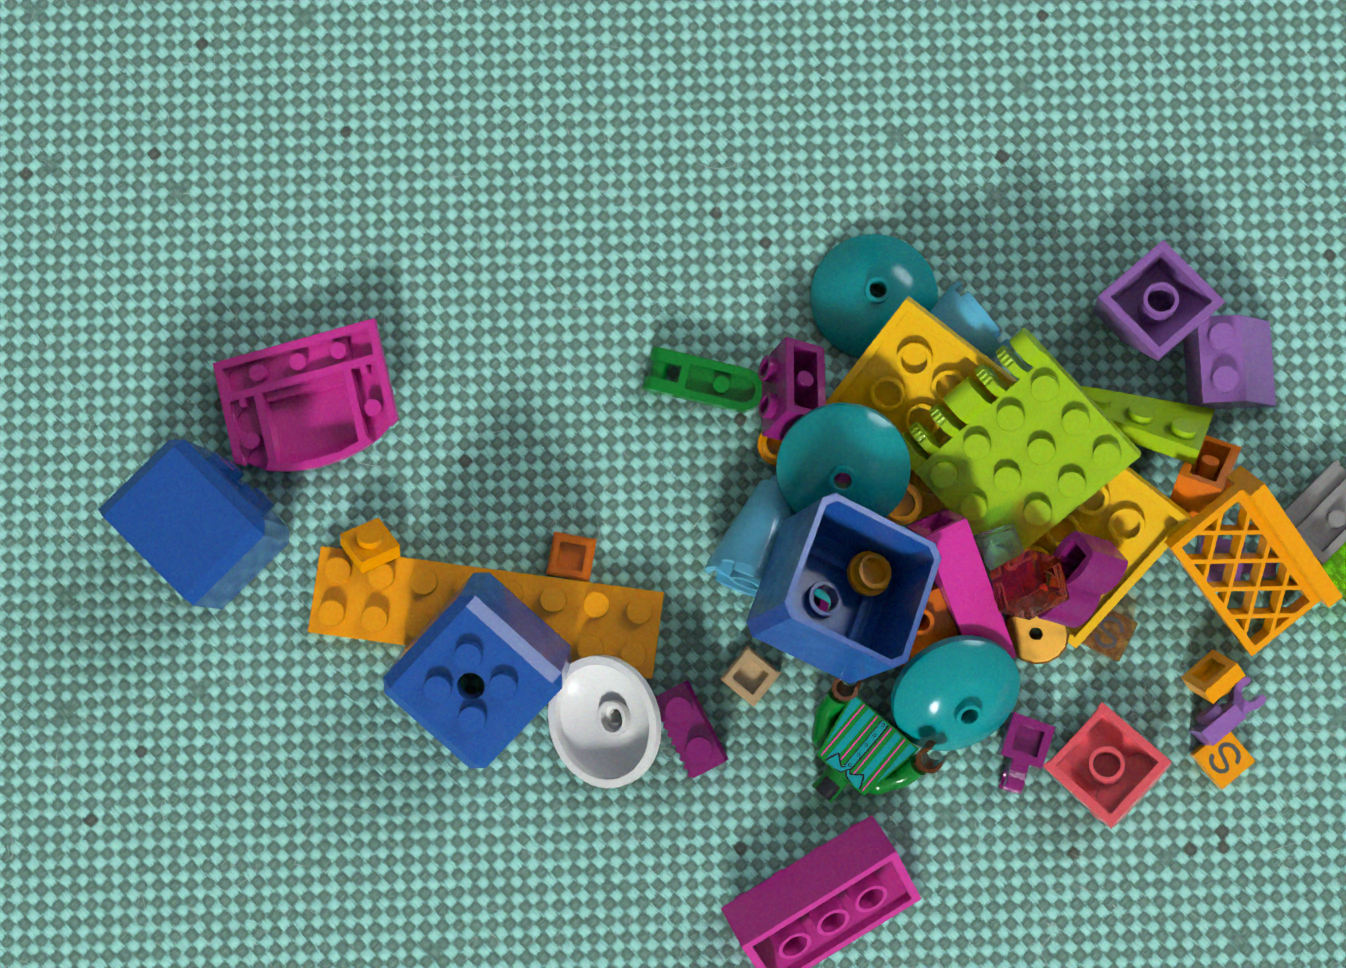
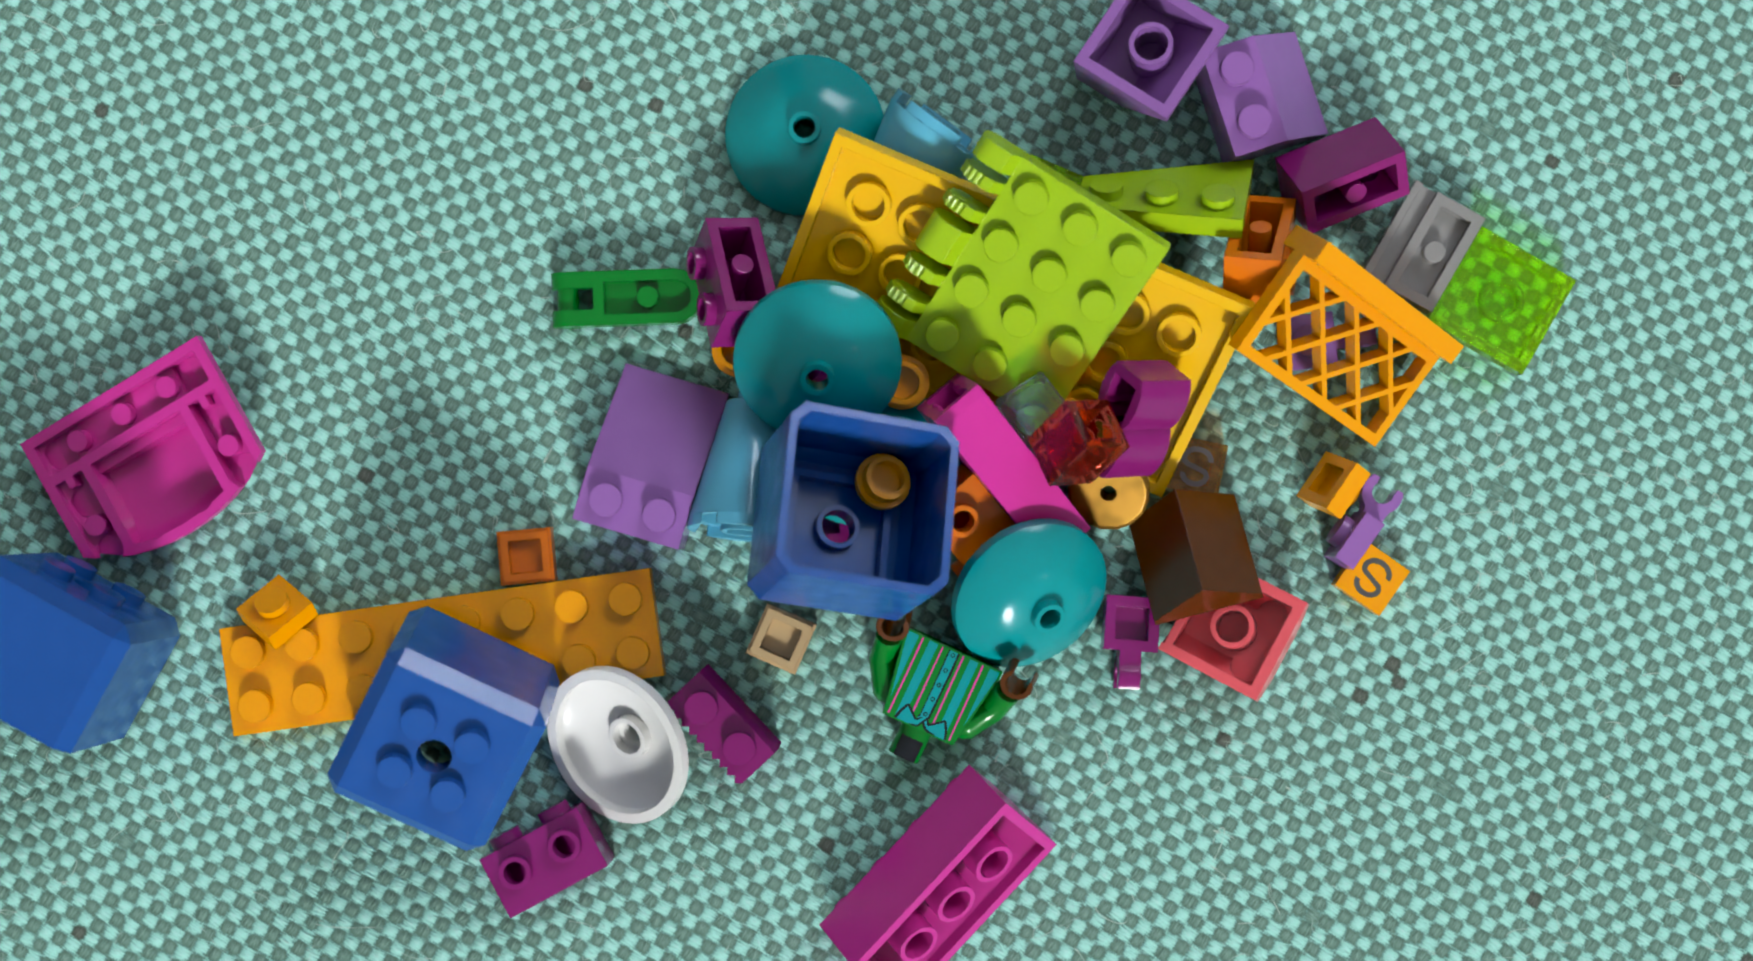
camera: 15 degrees left, 5 degrees up
(521, 794) = (546, 857): none -> magenta brick
(690, 507) = (650, 456): none -> medium lavender slope
(1090, 700) = (1194, 555): none -> reddish brown slope
(1282, 439) = (1343, 174): none -> magenta brick

